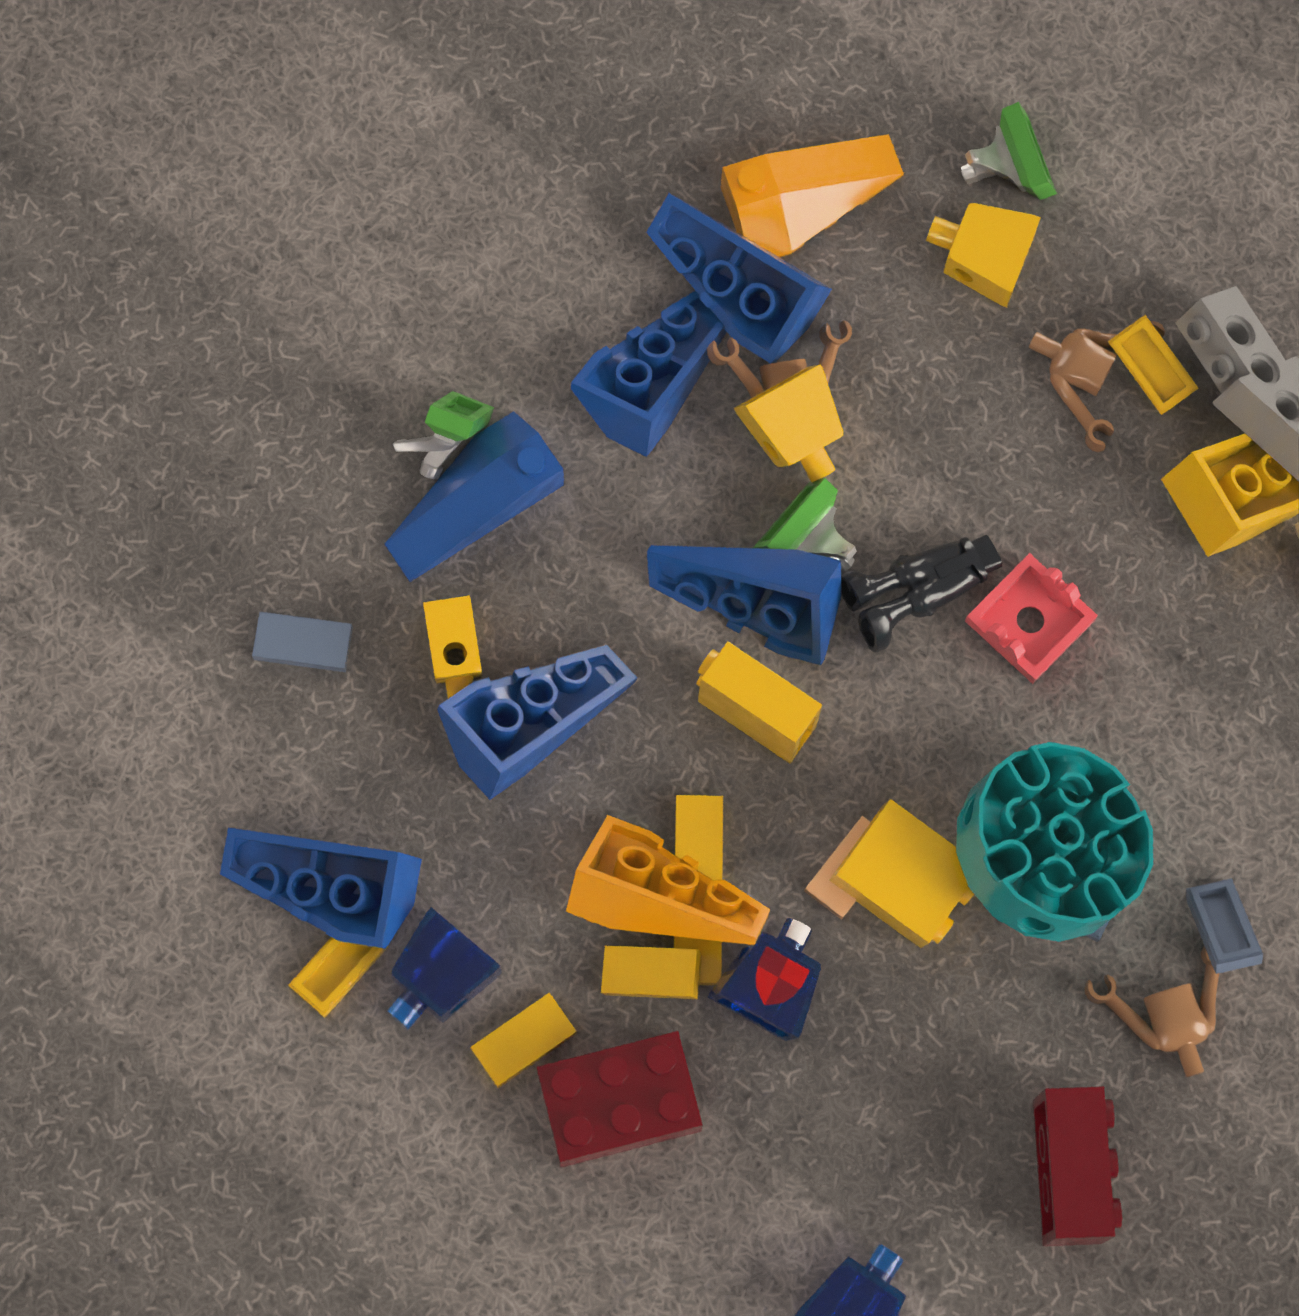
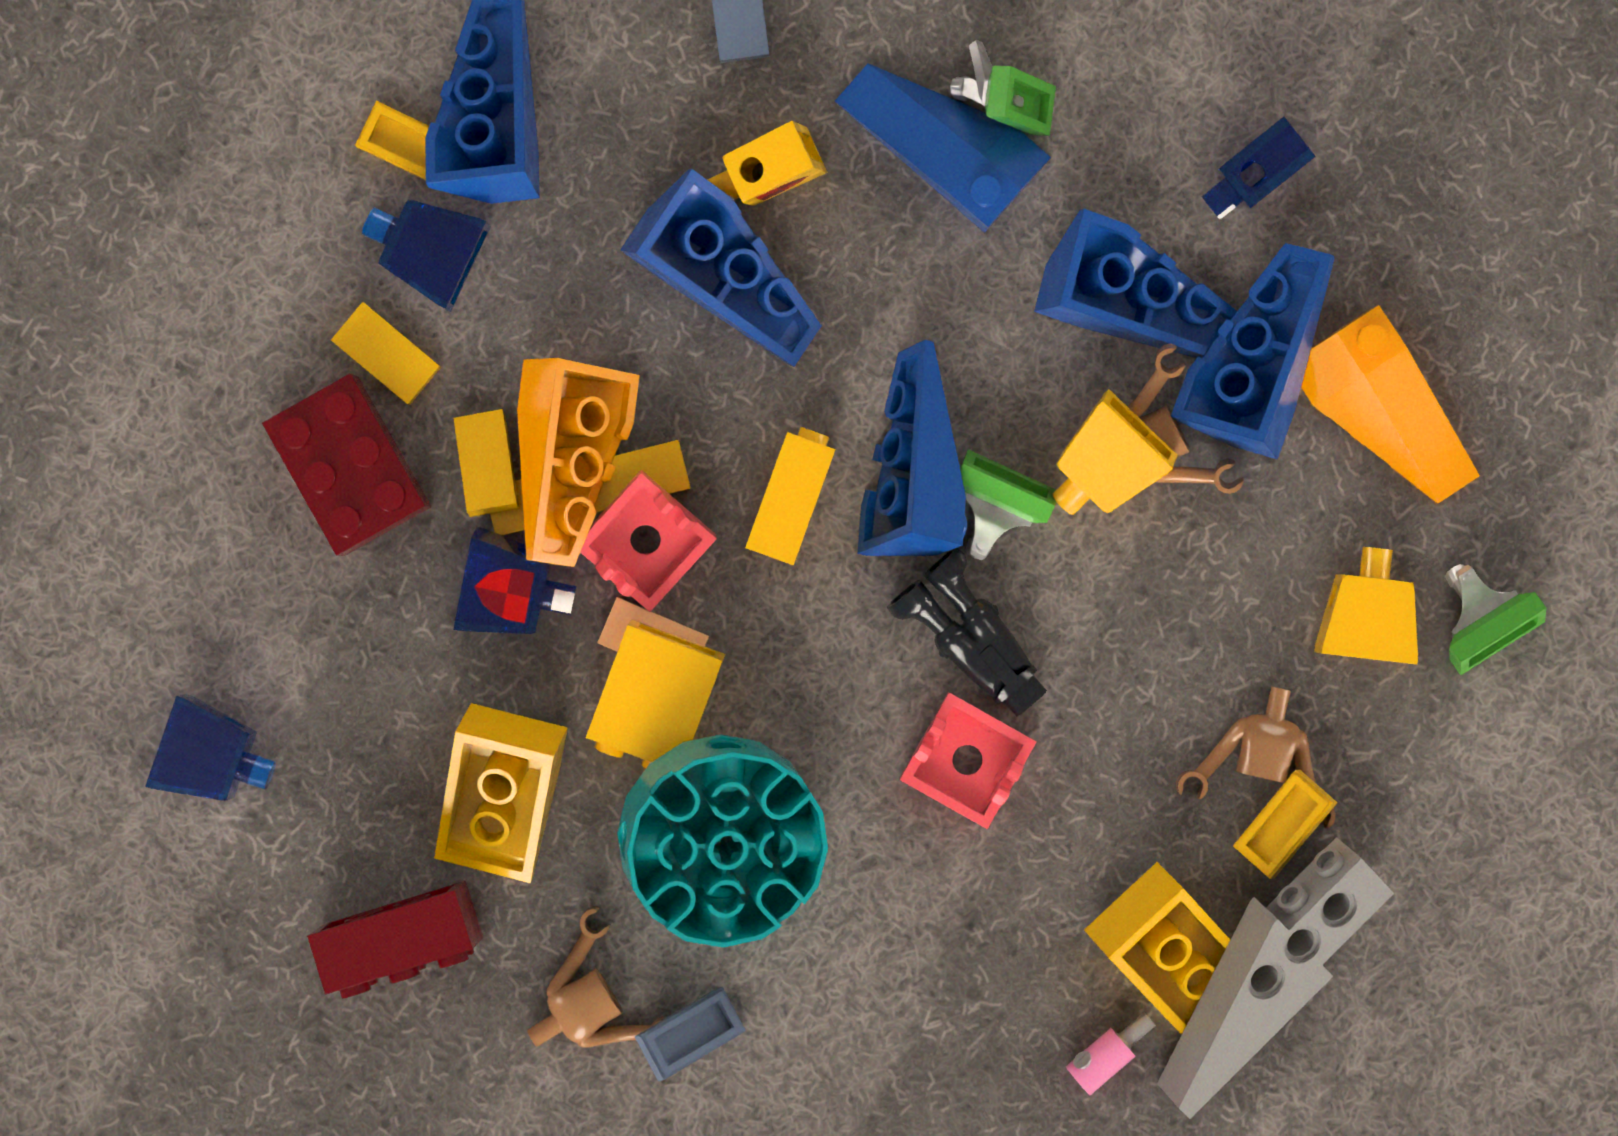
camera: 80 degrees right, 15 degrees up
(570, 216) = (1277, 151): none -> clear blue torso
(773, 816) = (653, 574): none -> coral piece
(960, 1041) = (499, 792): none -> yellow slope

